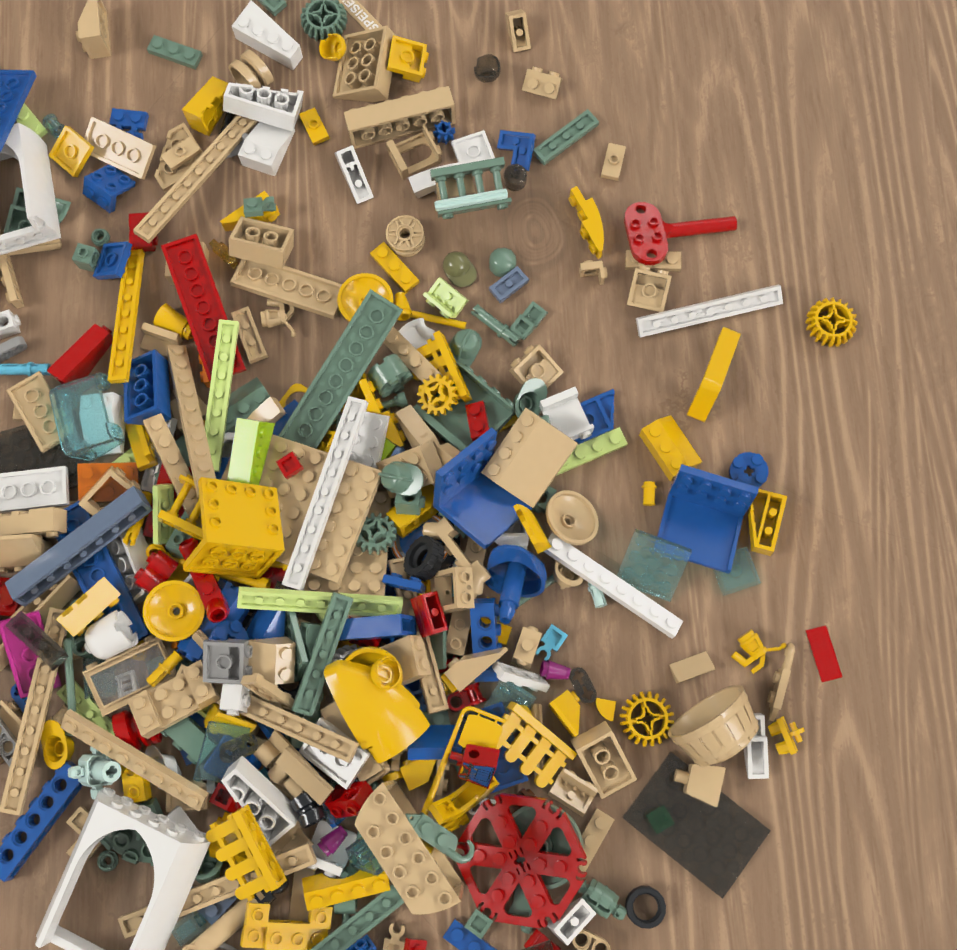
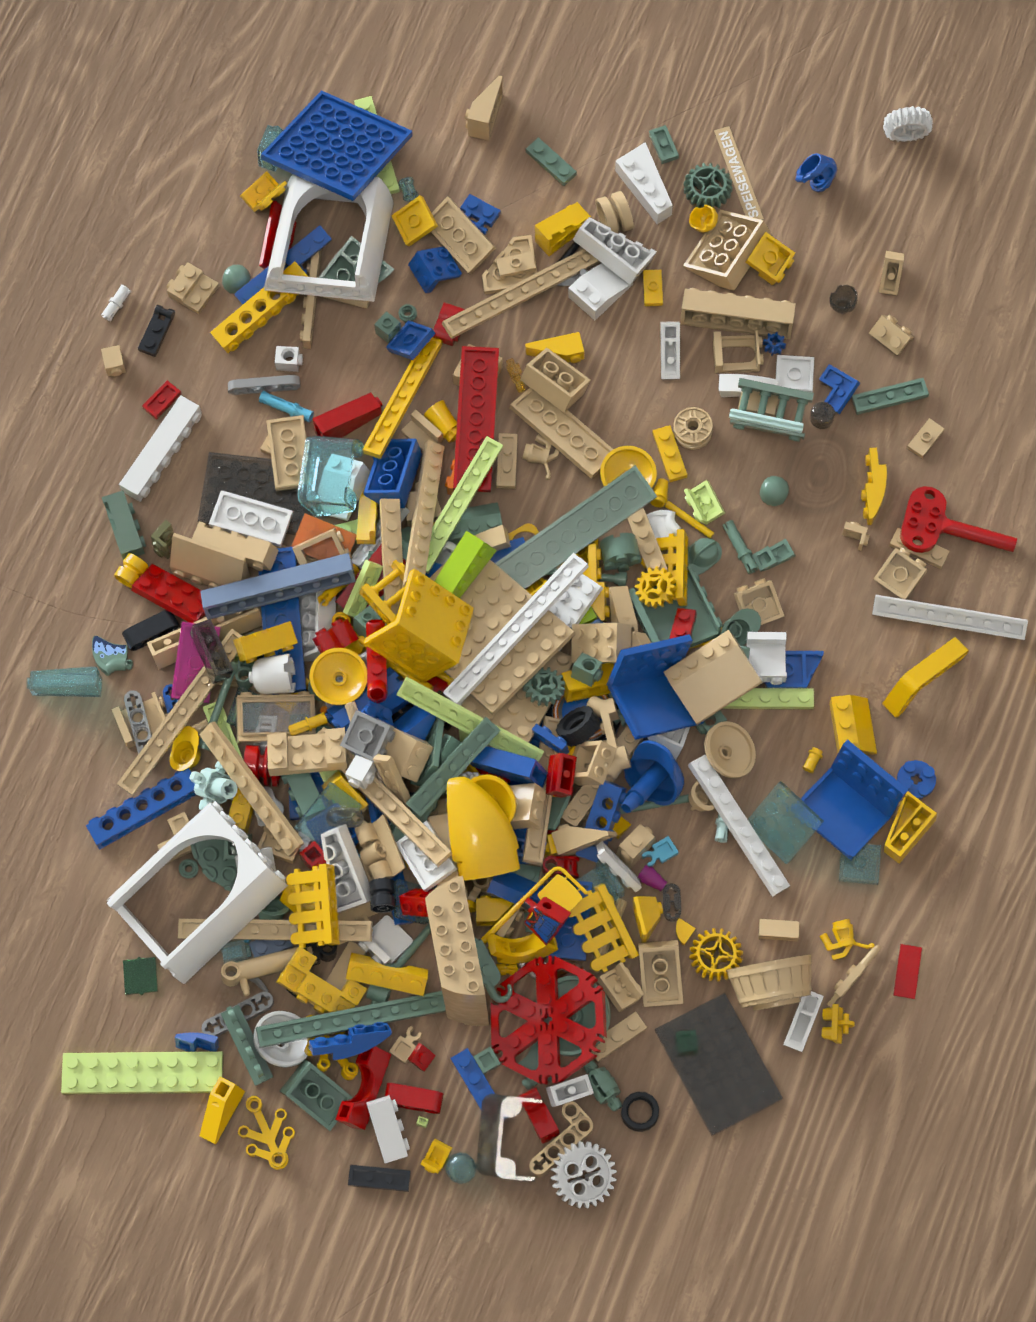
camera: 25 degrees right, 5 degrees down
(255, 206) = (564, 343): sand green plate -> none
(289, 465) = (494, 592): red plate -> none
(304, 775) = (392, 863): tan tile -> none
(332, 840) = (390, 934): magenta cone -> none
(363, 858) = (417, 958): clear light blue brick -> none
(387, 669) = (503, 801): yellow hair -> none
(402, 478) = (589, 646): sand green piece -> none
(459, 269) = (730, 480): olive cap -> none
(508, 284) = (770, 514): sand blue plate -> none
(532, 528) = (688, 741): yellow slope -> none
(702, 782) = (739, 1026): tan torso -> none

